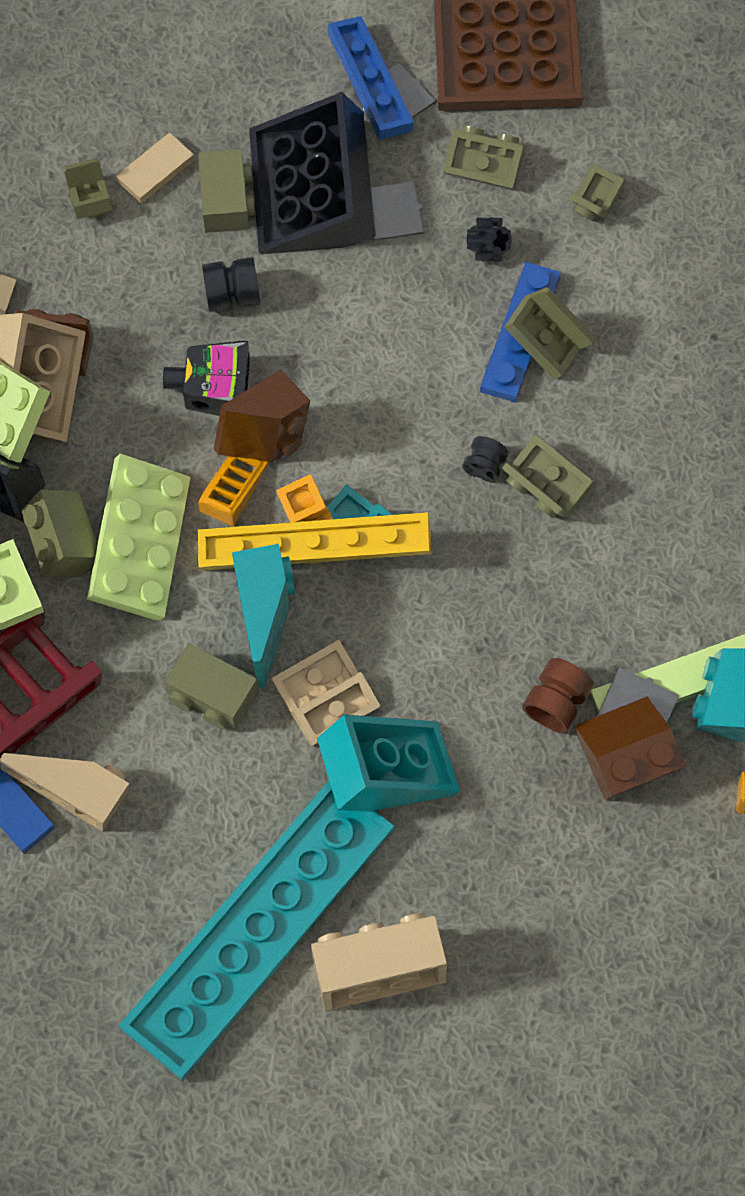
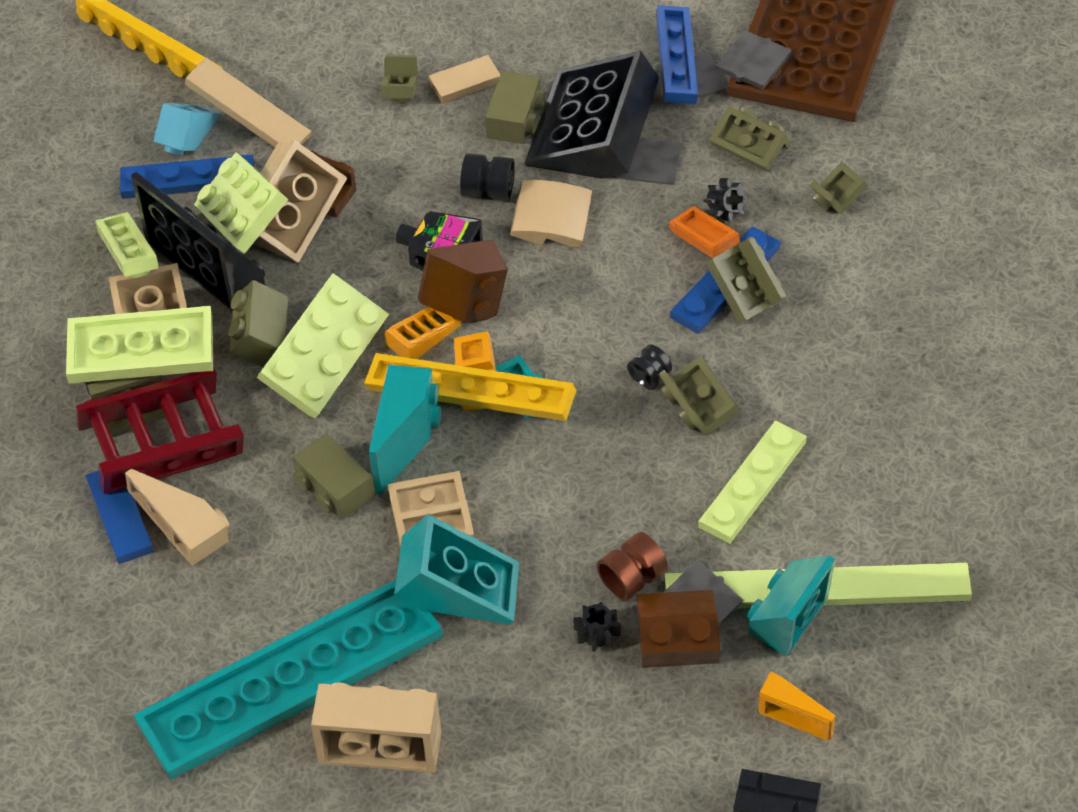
camera: 20 degrees right, 15 degrees down
(311, 305) = (551, 212): none -> tan slope
(454, 63) = (753, 59): none -> flat silver piece
(479, 283) = (704, 232): none -> orange tile
(551, 781) = (597, 626): none -> black gear
(635, 558) = (752, 482): none -> yellowish green plate

